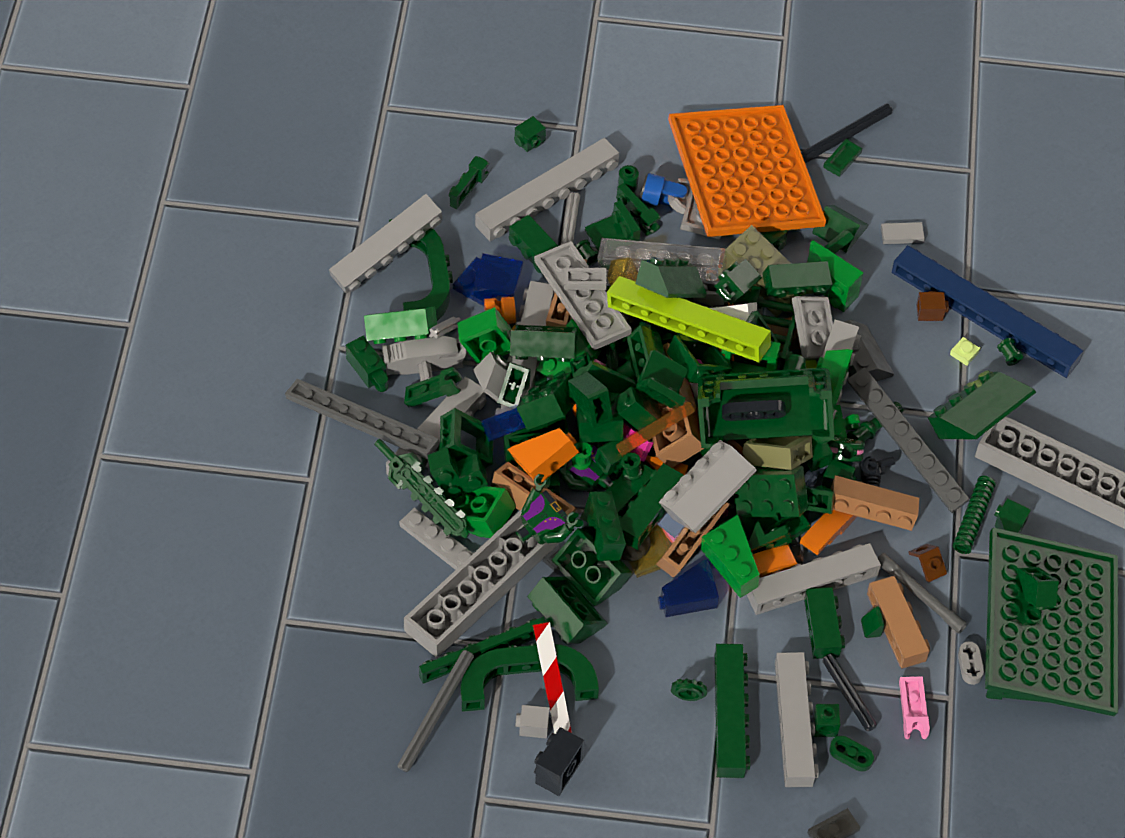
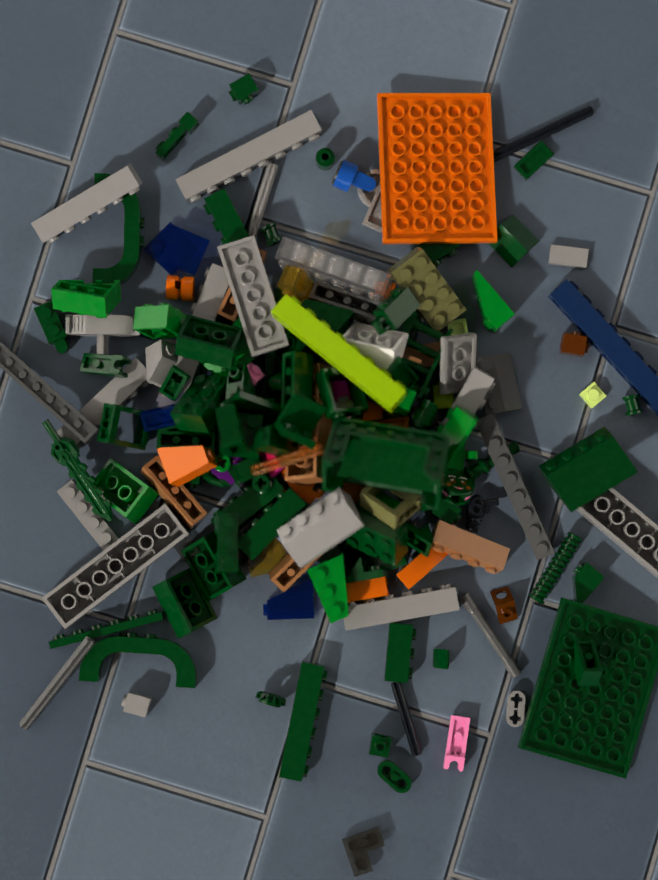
camera: 10 degrees right, 30 degrees up
(444, 327) = (123, 305): light grey axle -> none
(457, 477) = (109, 461): dark green brick -> none
(544, 517) = (175, 528): dark green torso -> none
(551, 676) = (158, 674): sticker -> none
(558, 761) = (145, 754): black brick -> none
(584, 278) = (256, 285): light grey plate -> none
(618, 226) = (299, 216): dark green bracket -> none
(638, 210) = (334, 206): dark green plate -> none
(671, 278) = (332, 309): dark green slope -> none
(753, 410) = (375, 464): black beam -> none
(795, 720) = (354, 738): light grey brick -> none
(797, 279) = (452, 313): dark green brick -> none
(839, 241) = (499, 266): dark green tile -> none
(899, 624) = (463, 662): medium nougat brick -> none

